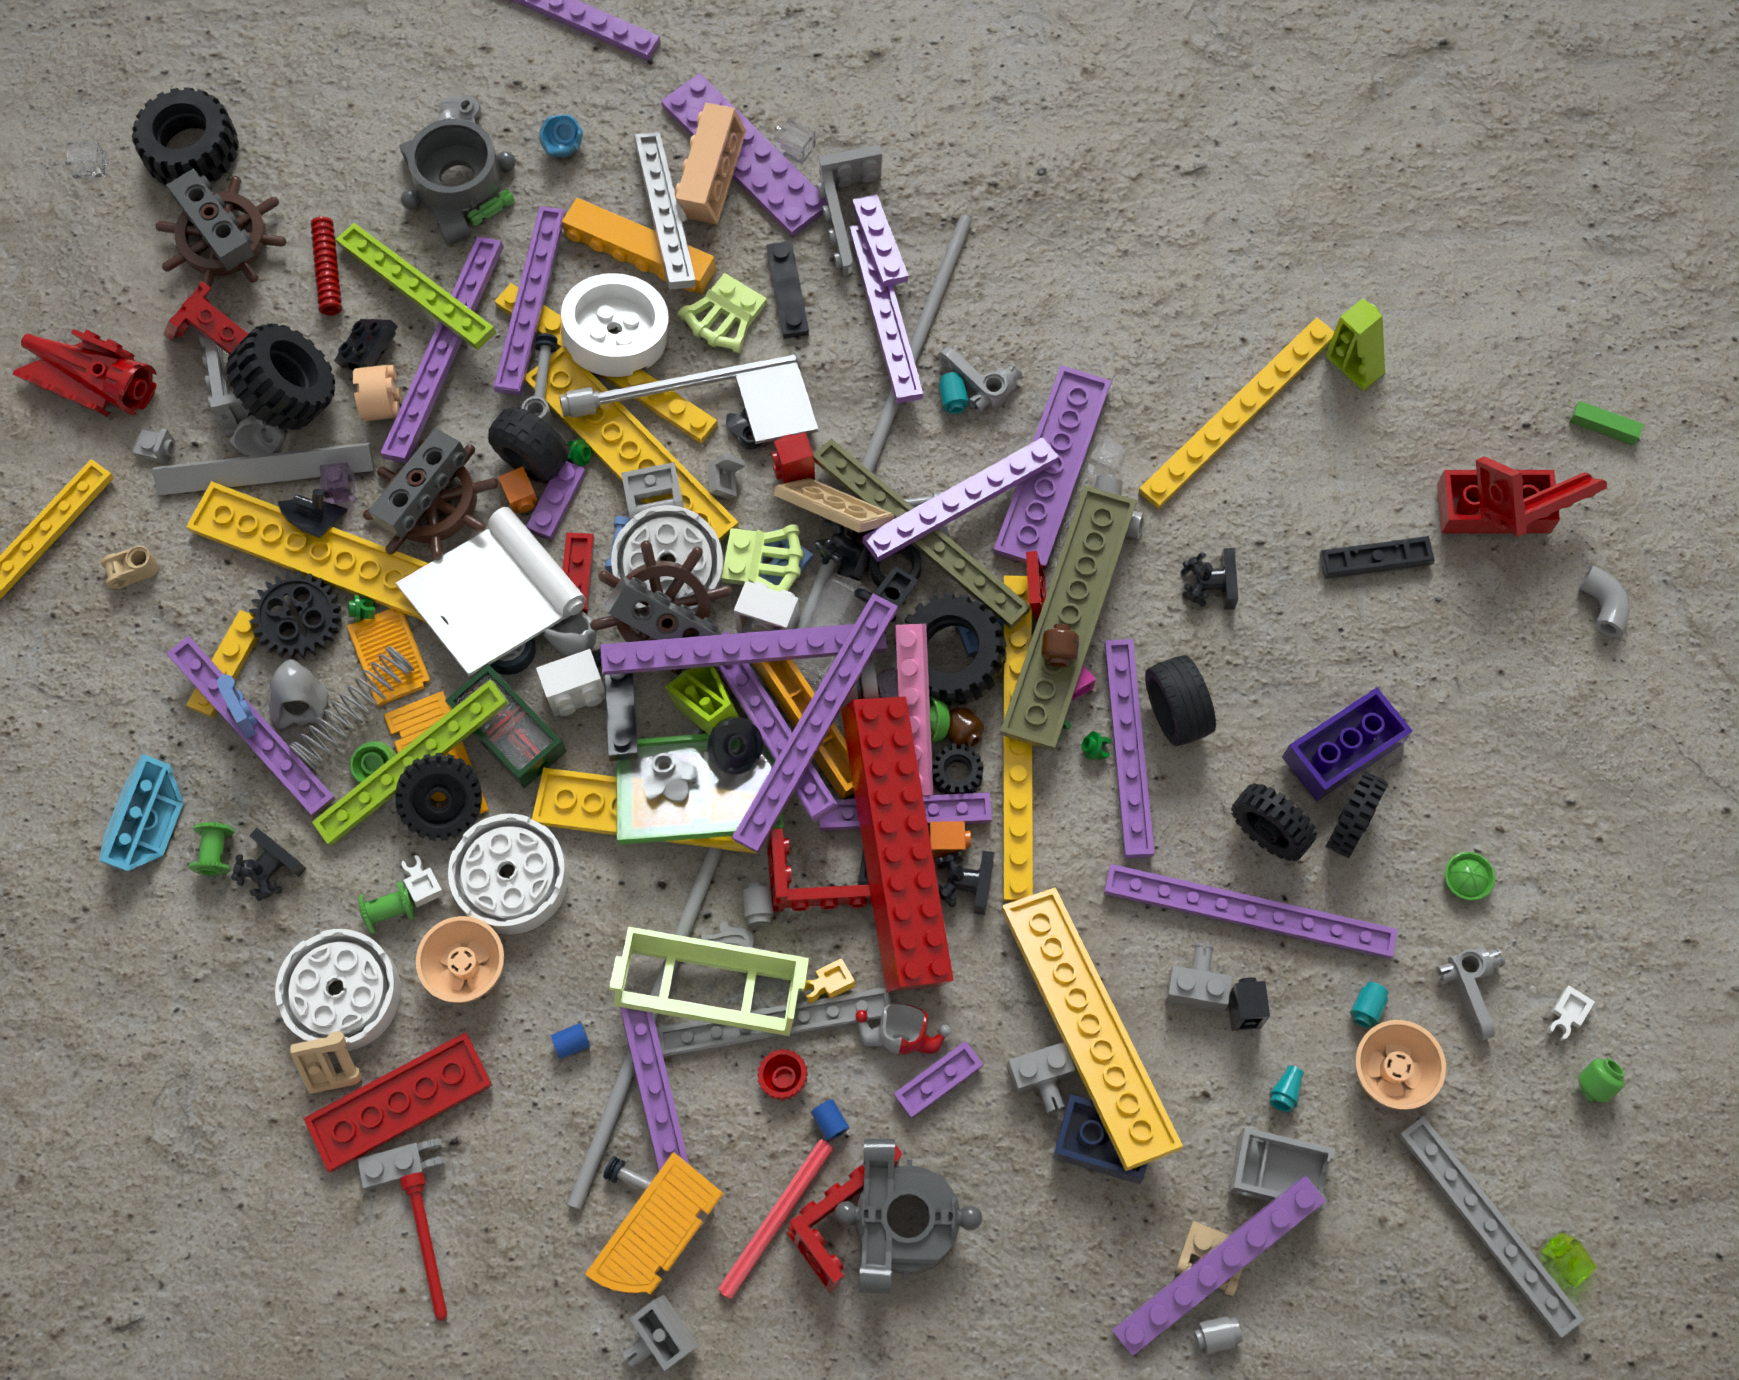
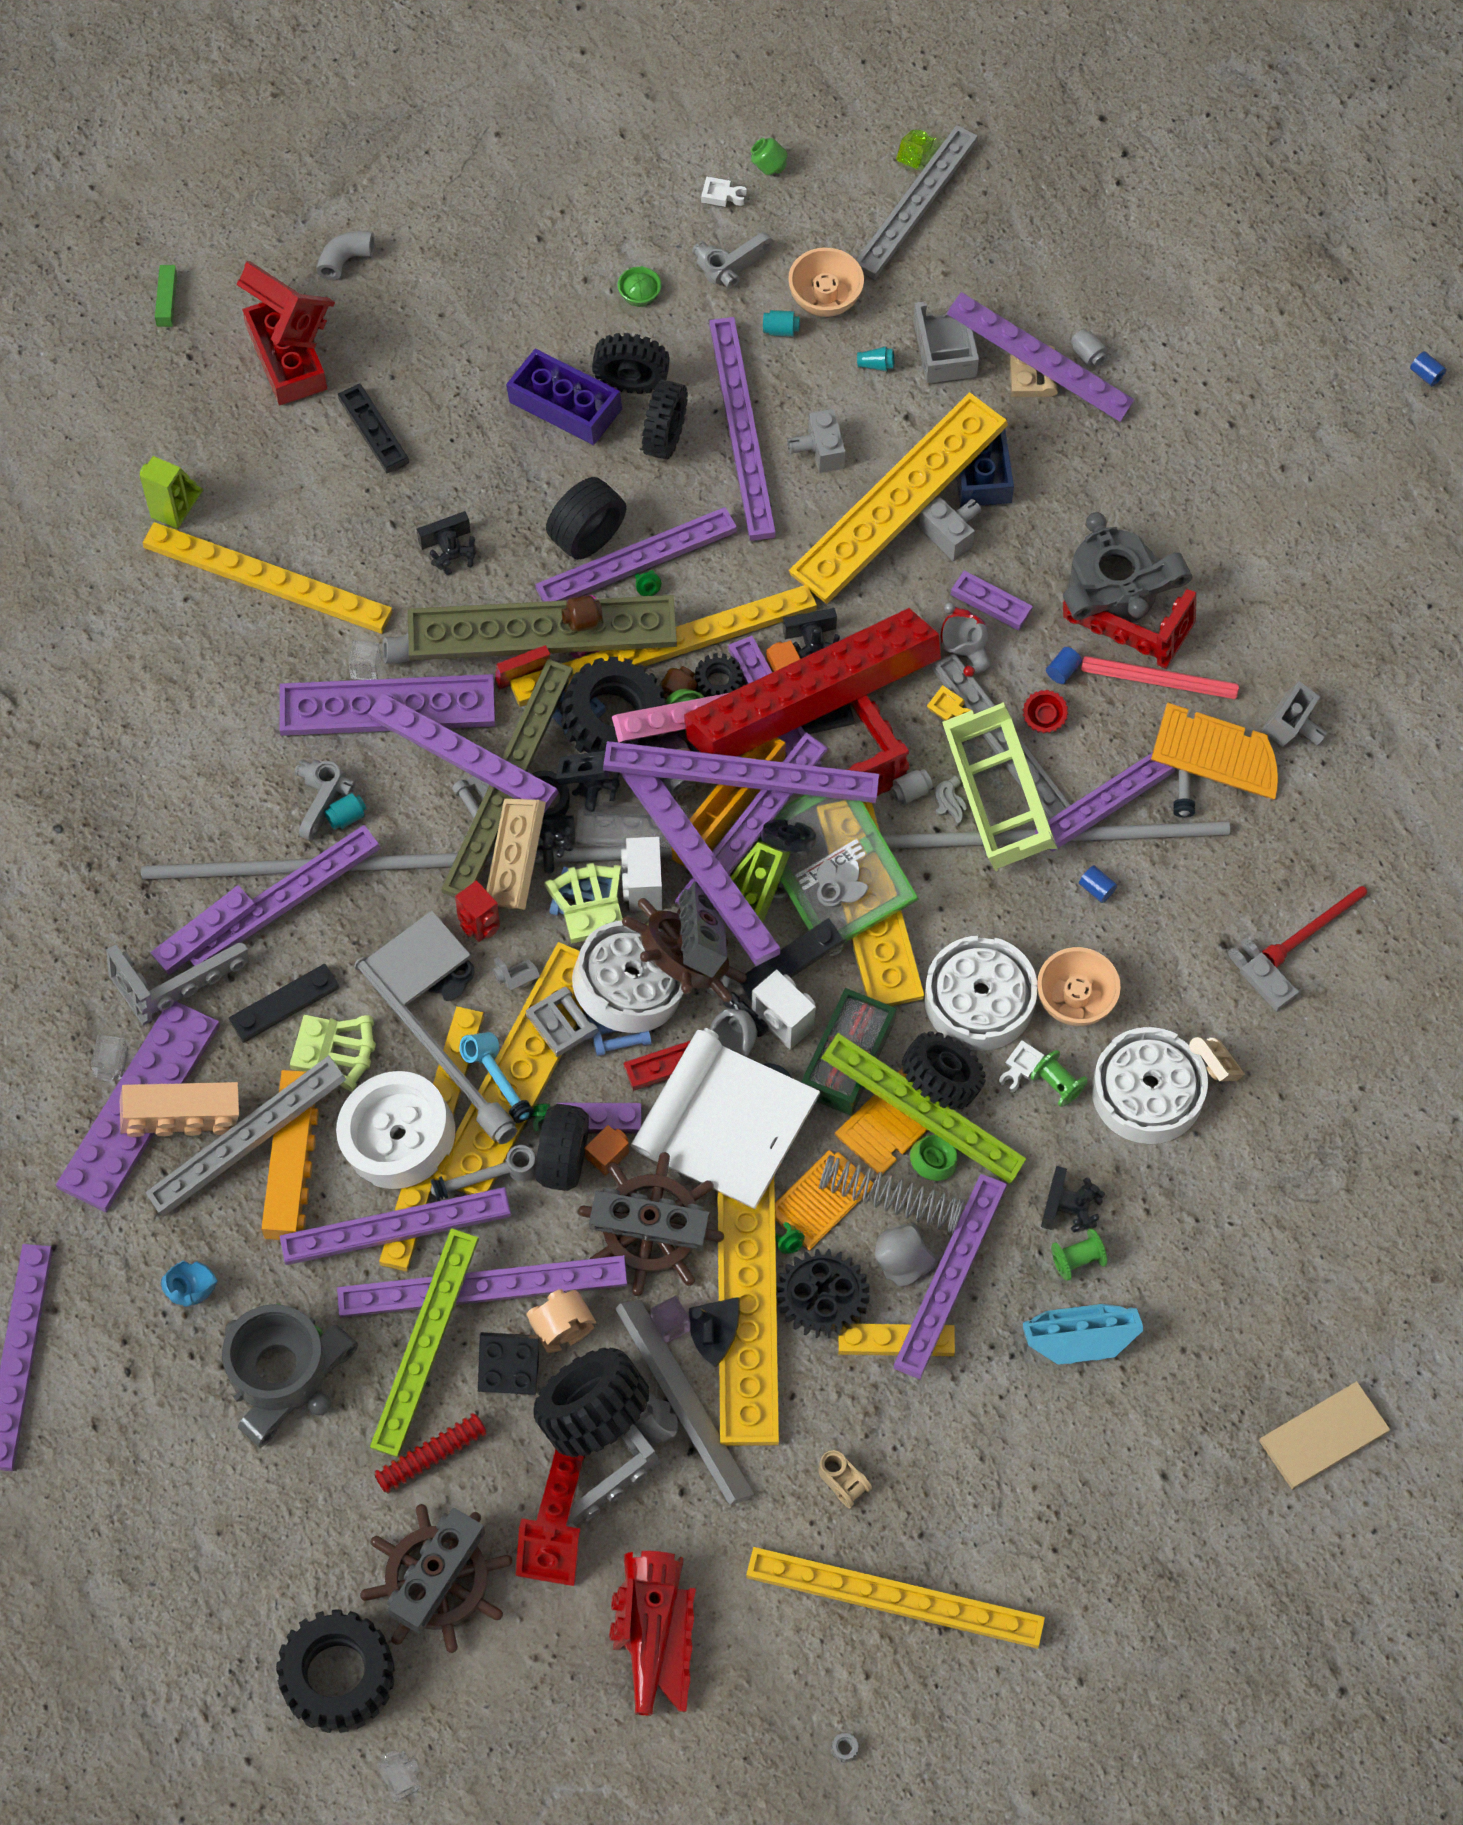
camera: 115 degrees left, 5 degrees down
(154, 446) = (702, 1524): light grey bracket -> none
(237, 705) = (948, 1270): medium blue plate -> none
(397, 1102) = (1216, 997): red plate -> none
(455, 108) = (198, 1410): light grey plate -> none
(660, 418) = (484, 1049): none -> medium azure piece
(1248, 1004) = (826, 393): black brick -> none

